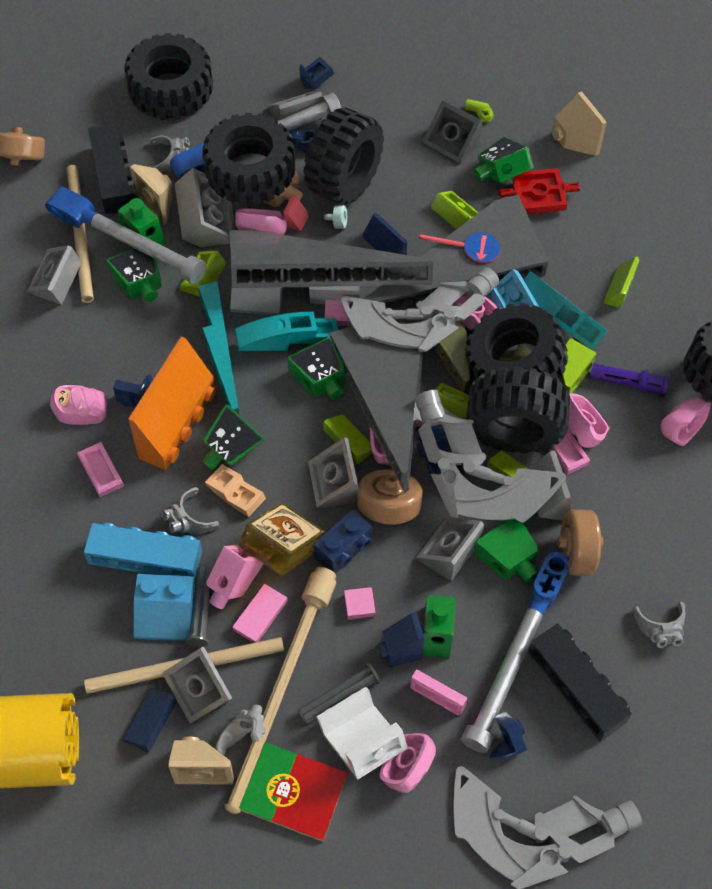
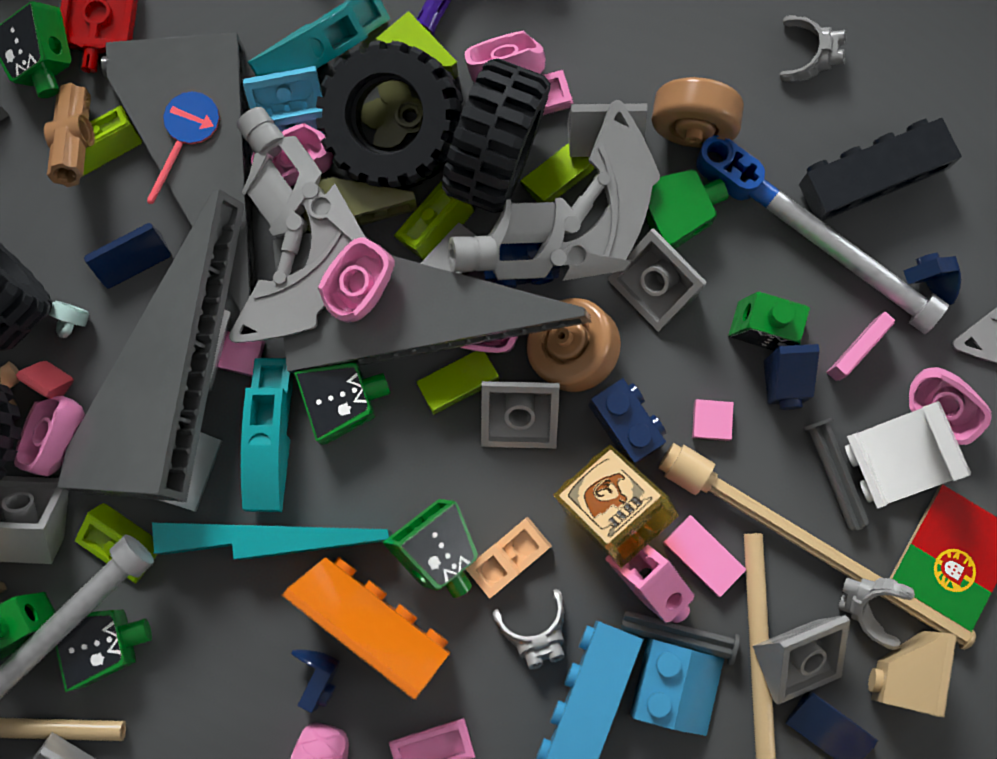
camera: 75 degrees left, 20 degrees up
(394, 345) = (356, 280): none -> bright pink piece
(452, 189) = (69, 135): none -> medium nougat piece

